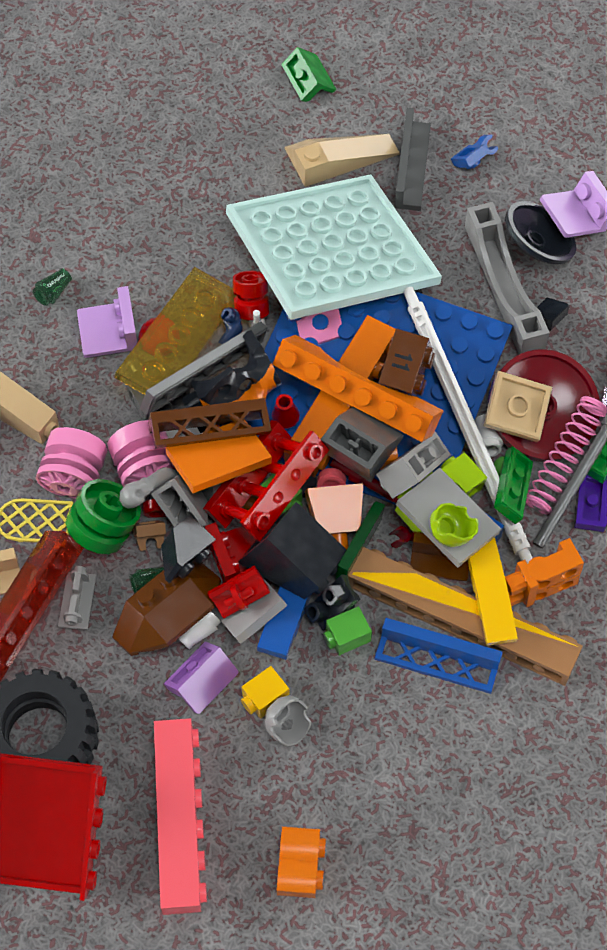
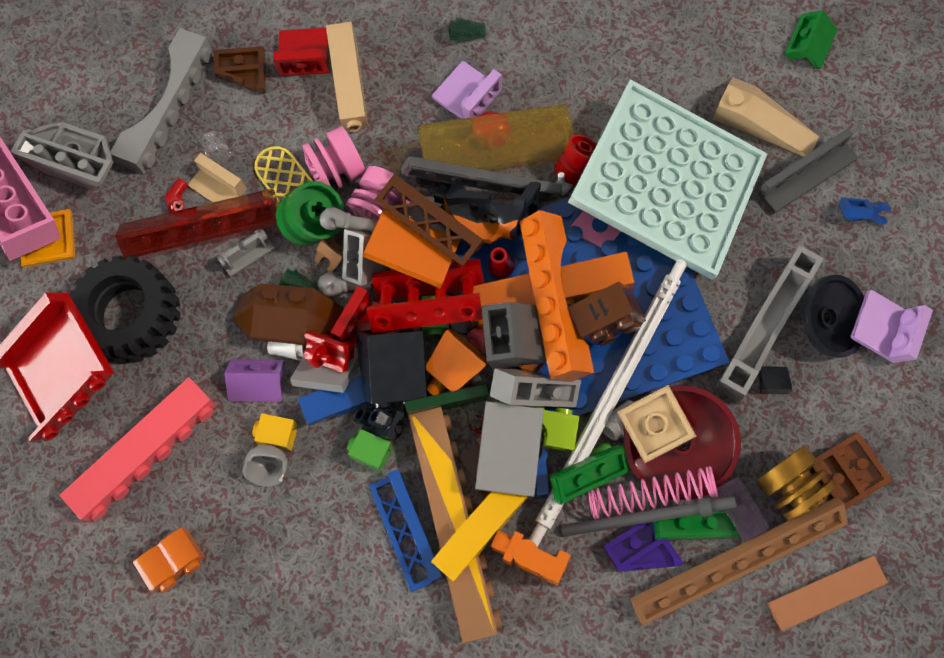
camera: 55 degrees right, 10 degrees up
(184, 547) = (324, 286): slope -> none
(232, 324) = (544, 169): dark blue arm -> none
(453, 525) = (495, 459): lime hair -> none

